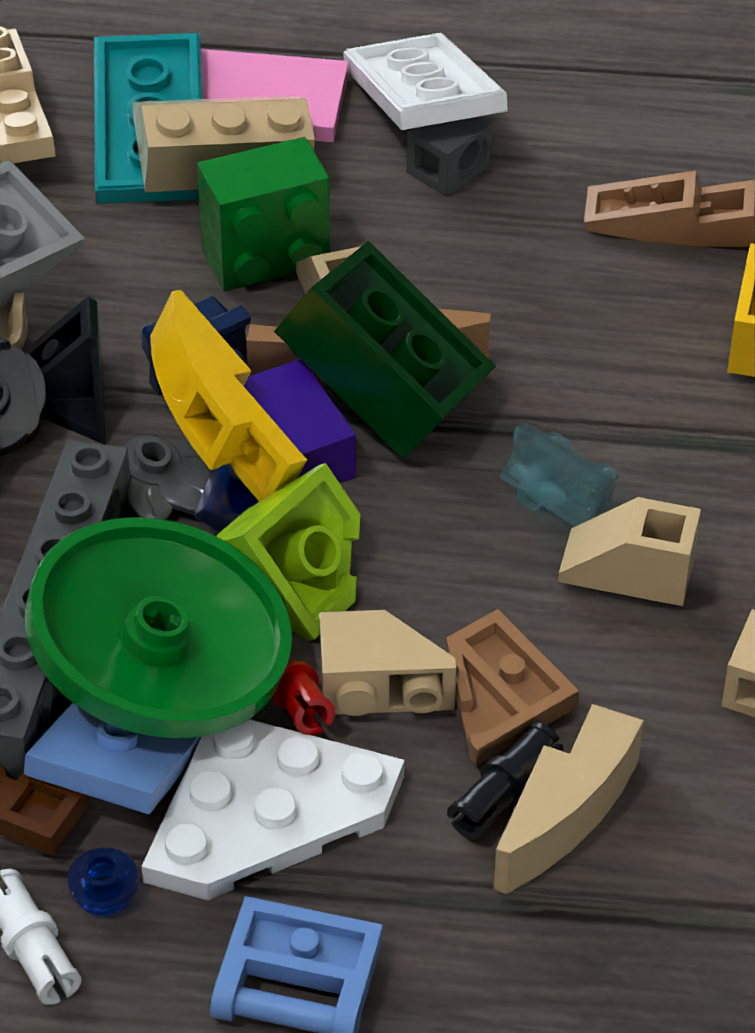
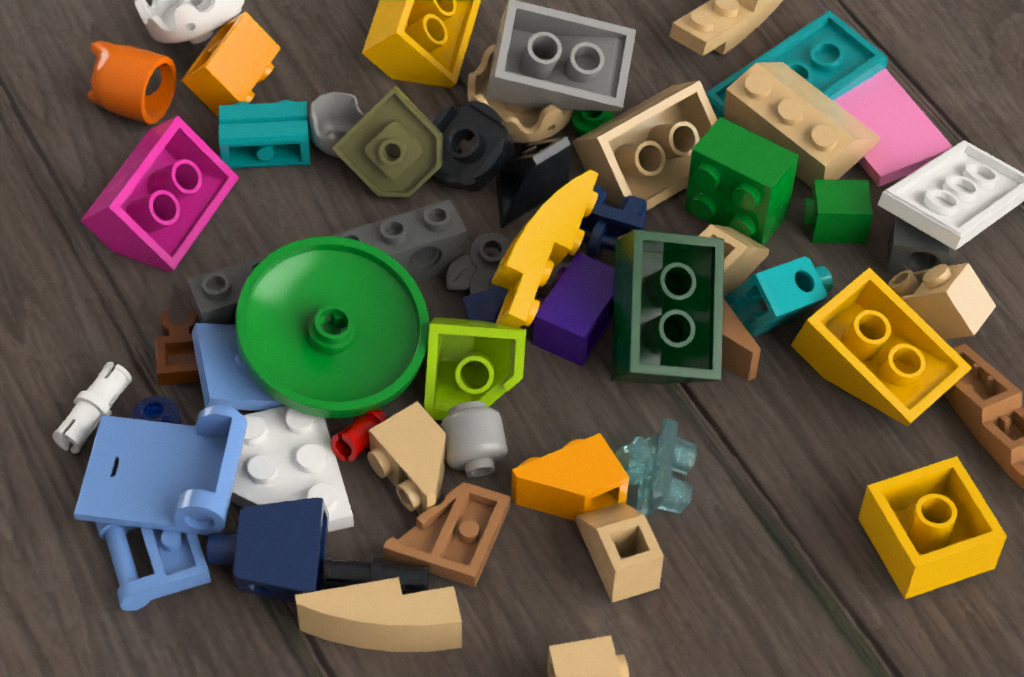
camera: 55 degrees right, 5 degrees up
(47, 294) = (587, 120): none -> green plate
(132, 253) = (649, 145): none -> tan slope
(215, 893) = (165, 472): none -> medium blue door
(359, 174) = (838, 211): none -> green brick
(398, 589) = (474, 438): none -> light grey head
(412, 843) = (276, 548): none -> dark blue torso
(443, 258) = (787, 292): none -> teal torso
(519, 546) = (571, 479): none -> light orange slope
(528, 171) = (946, 298): none -> tan slope
(555, 239) = (879, 350): none -> yellow slope

